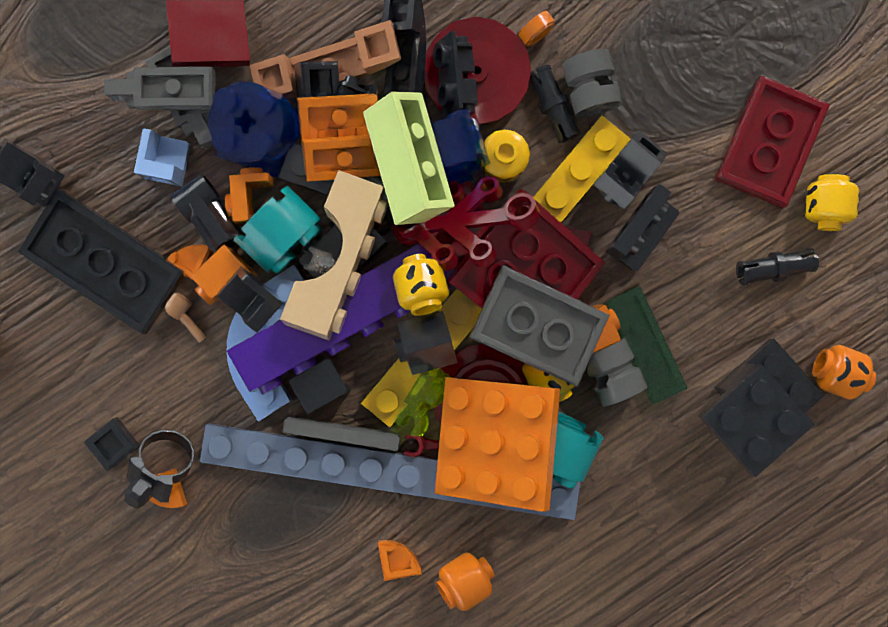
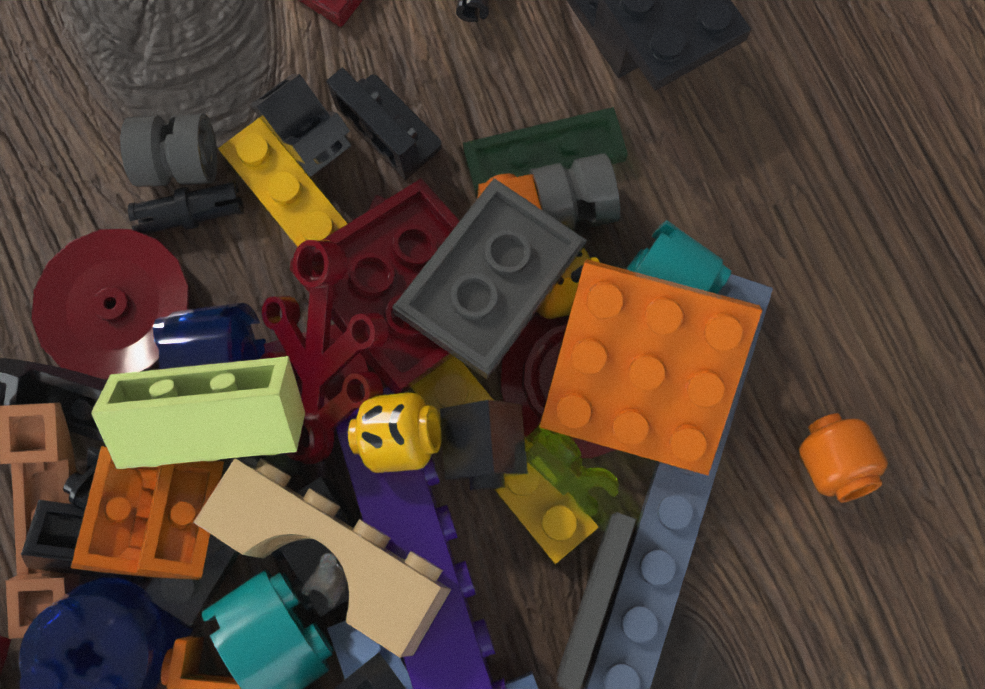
camera: 75 degrees left, 10 degrees down
(318, 386) = (517, 622): black panel -> none
(397, 560) = (798, 554): orange tile -> none
(424, 444) = (633, 479): dark red hand -> none
(452, 58) = (84, 331): black hinge -> none
(507, 155) = (239, 277): yellow head -> none
(537, 29) = (75, 210): orange tile -> none

